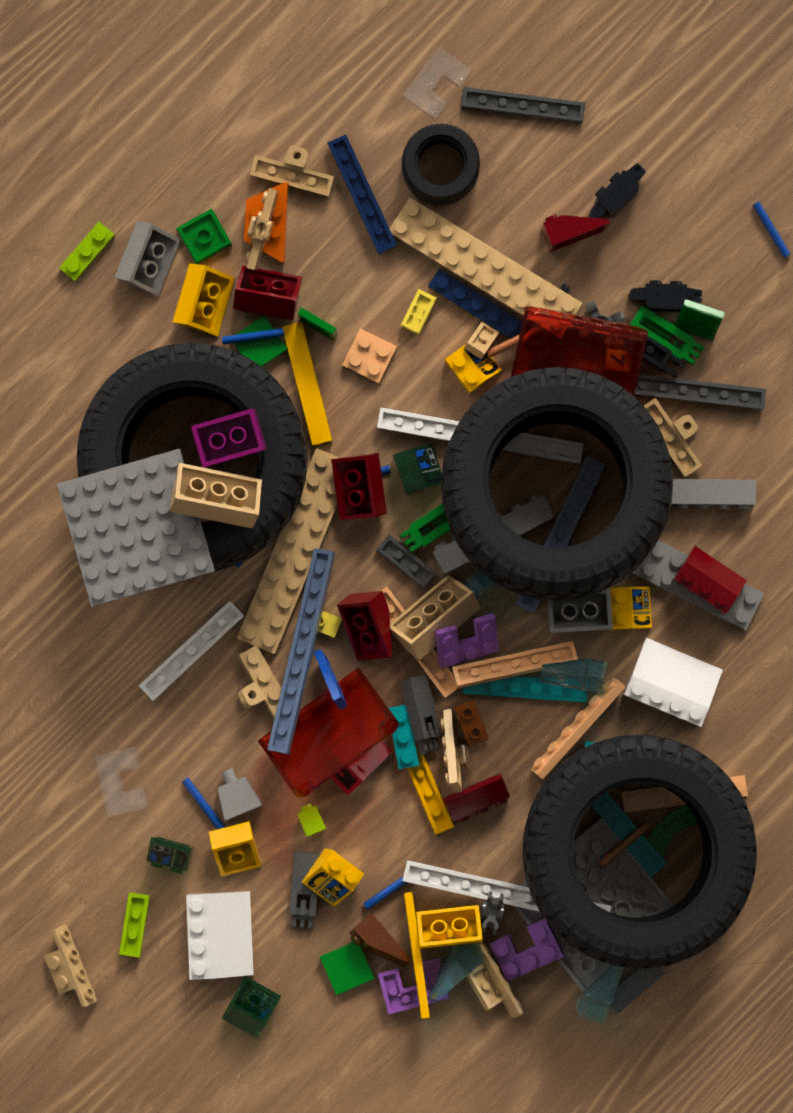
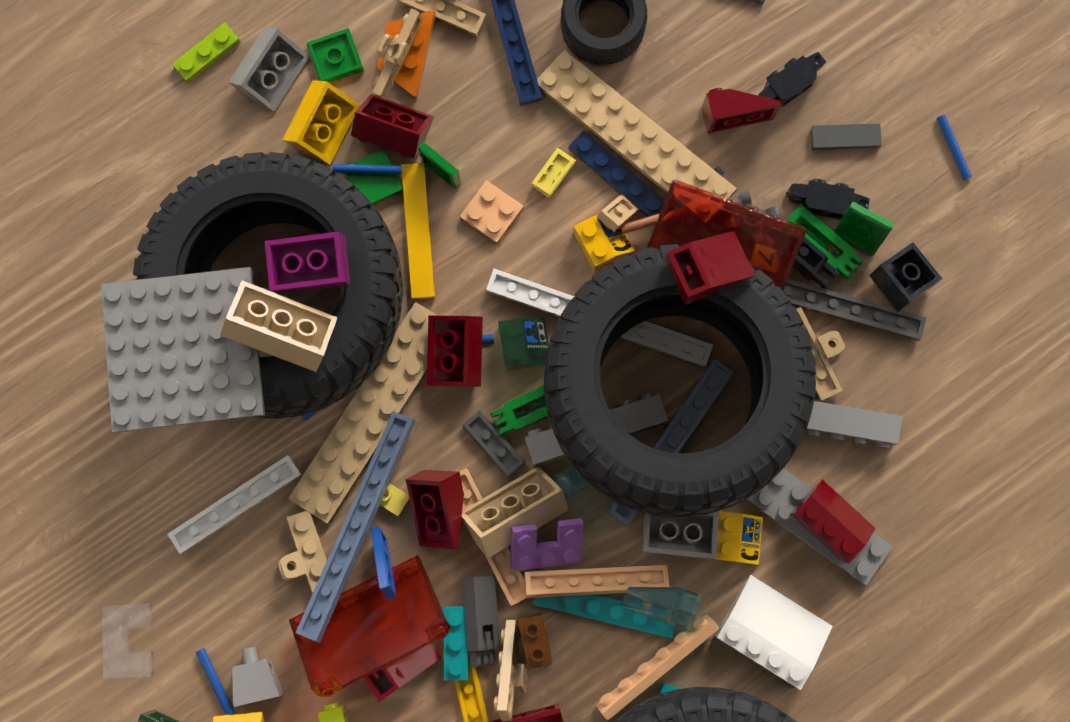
camera: 10 degrees right, 5 degrees down
(566, 386) = (708, 266): none -> dark red slope
(674, 235) = (846, 136): none -> dark grey tile
(742, 356) = (905, 276): none -> black brick

